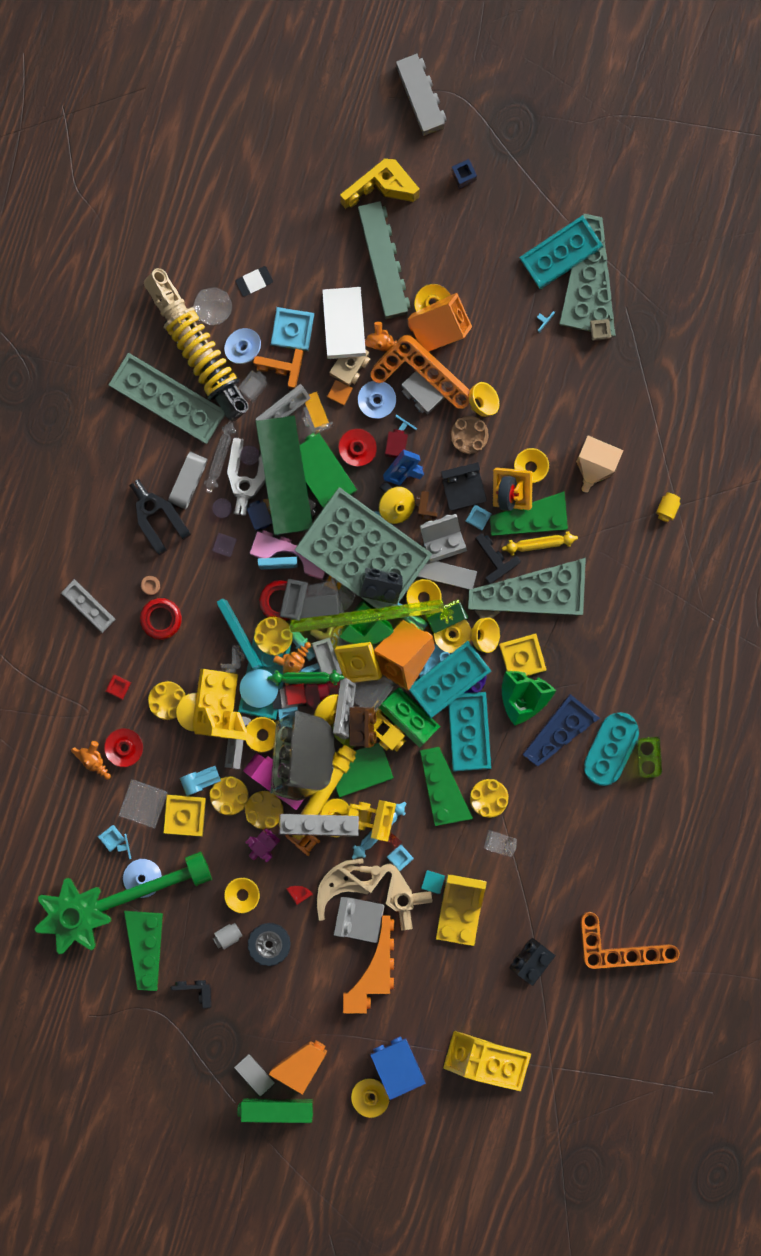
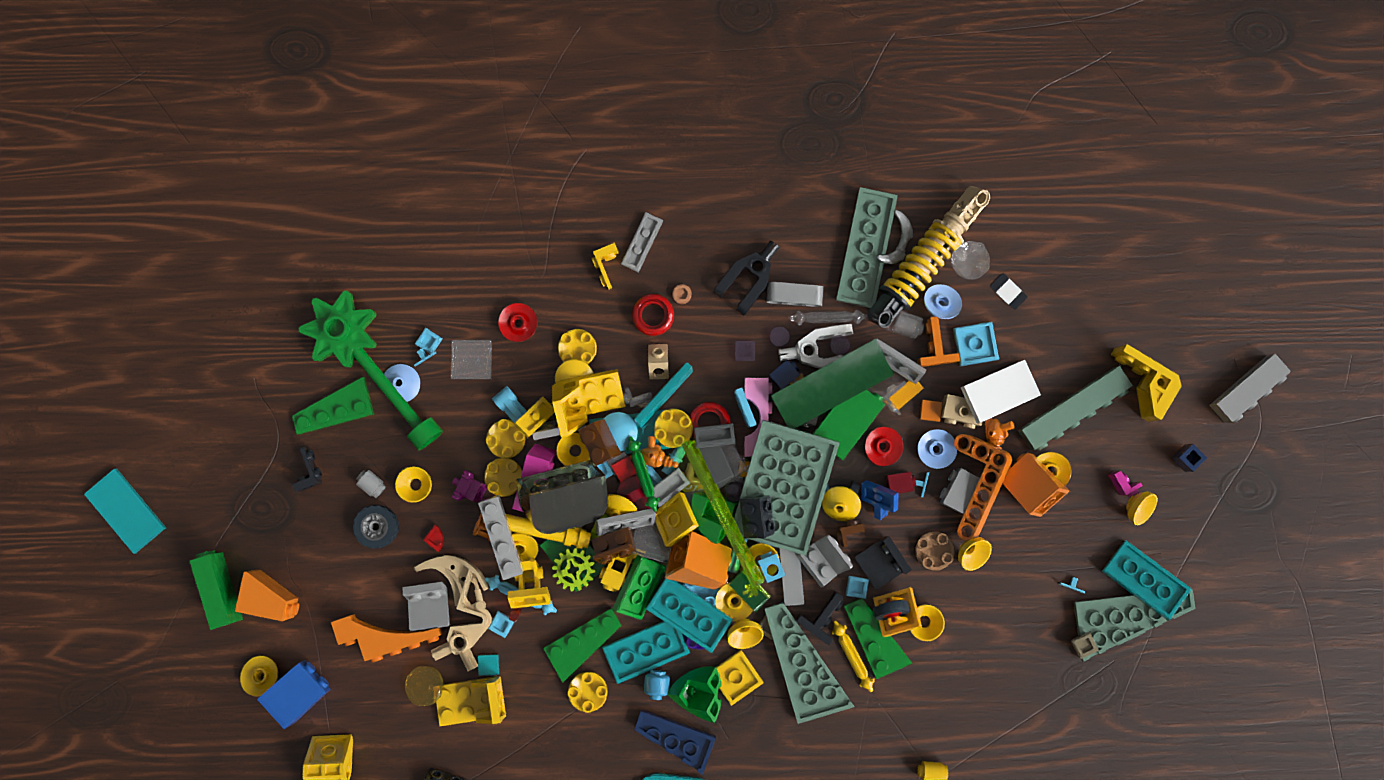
camera: 70 degrees right, 0 degrees up
(89, 641) = (607, 253): none -> yellow bracket
(91, 759) = (495, 296): orange piece -> none
(118, 687) = (574, 297): red tile -> none
(172, 1177) = (125, 511): none -> teal tile
(183, 370) = (907, 233): none -> light grey piece
(184, 815) = (472, 402): yellow plate -> none
(204, 627) = (658, 359): none -> tan bracket
(218, 760) = (535, 417): none -> yellow tile
(254, 1075) = (247, 554): light grey tile -> none
(263, 707) = (599, 442): none -> reddish brown brick
(351, 600) = (733, 491): none -> tile
(371, 780) = (565, 572): none -> lime gear
(424, 589) = (768, 559): none -> medium azure bracket
(431, 947) = (423, 686): none -> clear yellow tile
(465, 242) = (1121, 483): none -> dark pink bracket
(494, 232) = (1141, 507): none -> yellow piece
(500, 843) = (546, 719): clear bracket -> none
(504, 732) = (656, 684): none -> dark azure head
(597, 461) = (954, 687): light nougat piece -> none

